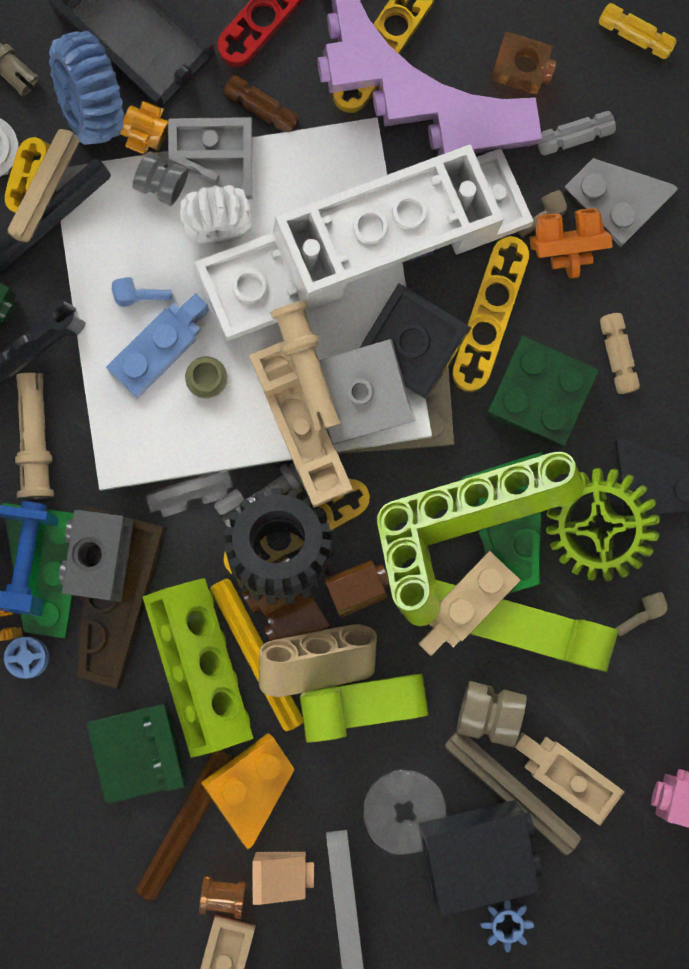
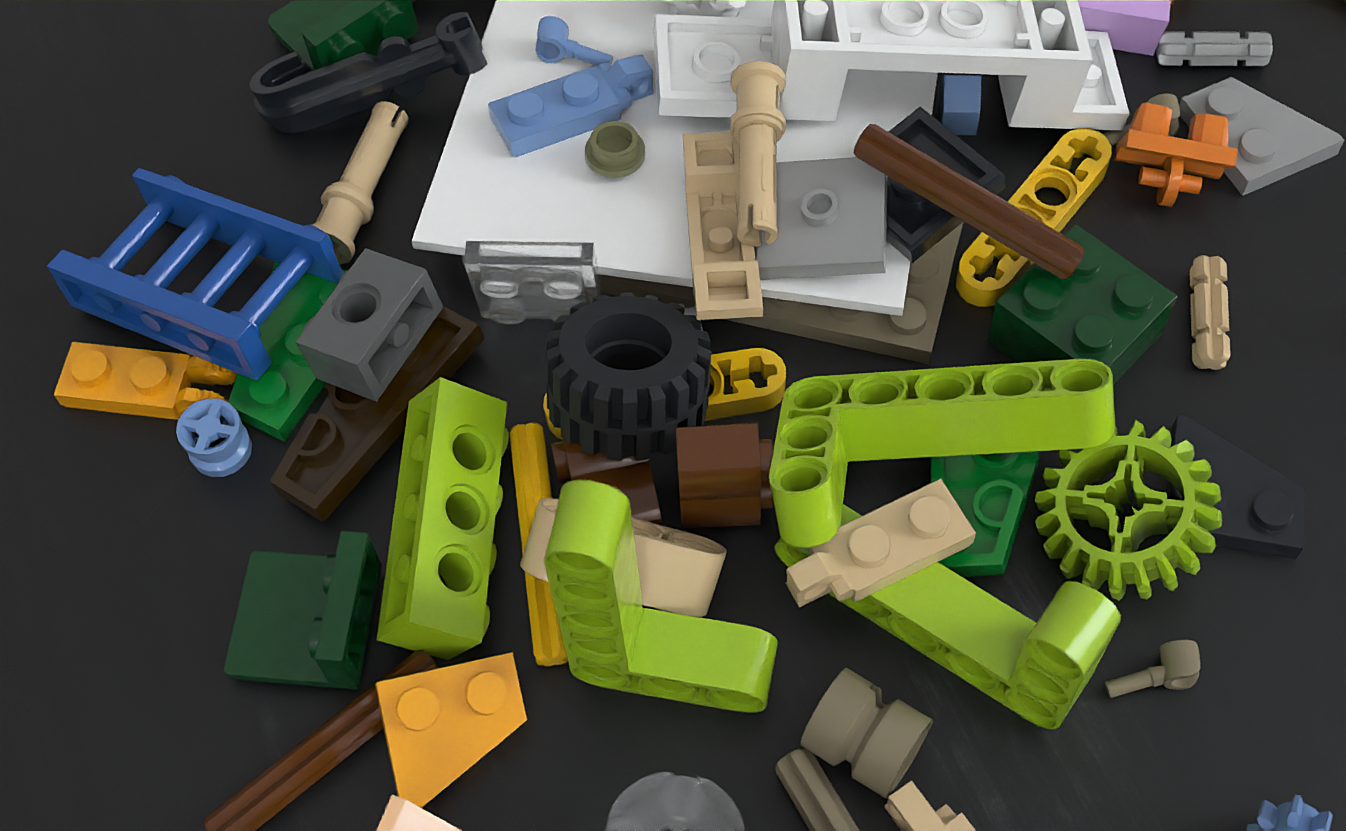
camera: 25 degrees right, 25 degrees down
(452, 359) = (969, 201): none -> reddish brown axle

